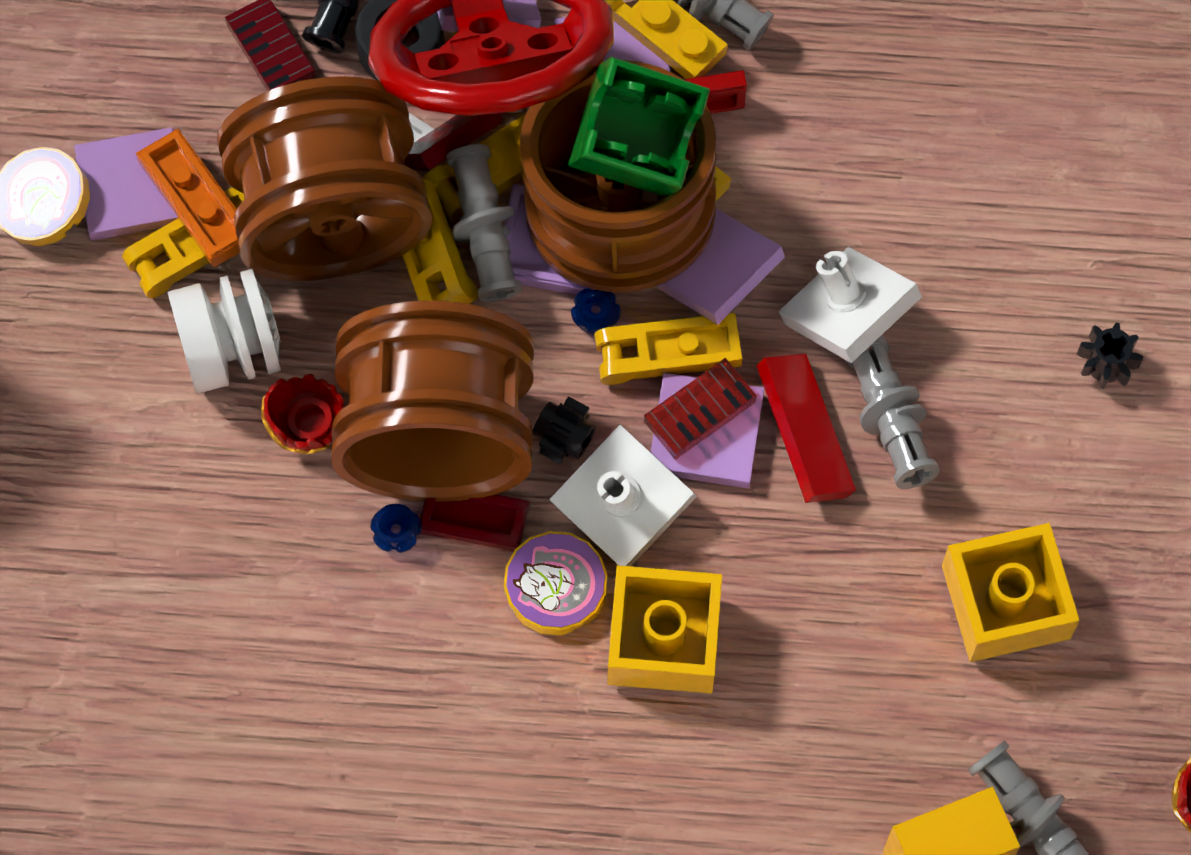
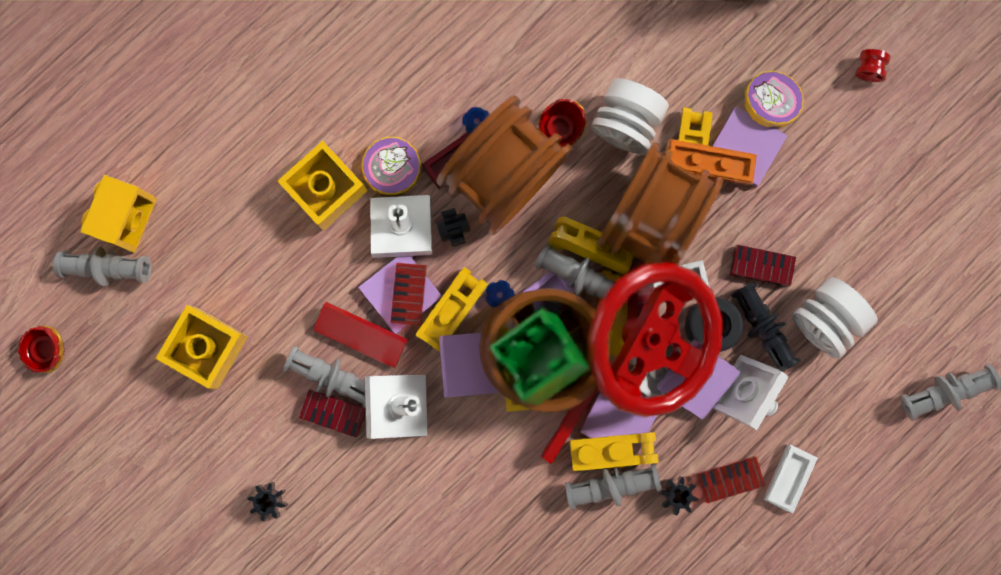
camera: 135 degrees right, 15 degrees up
(927, 365) = (333, 413): none -> dark red tile

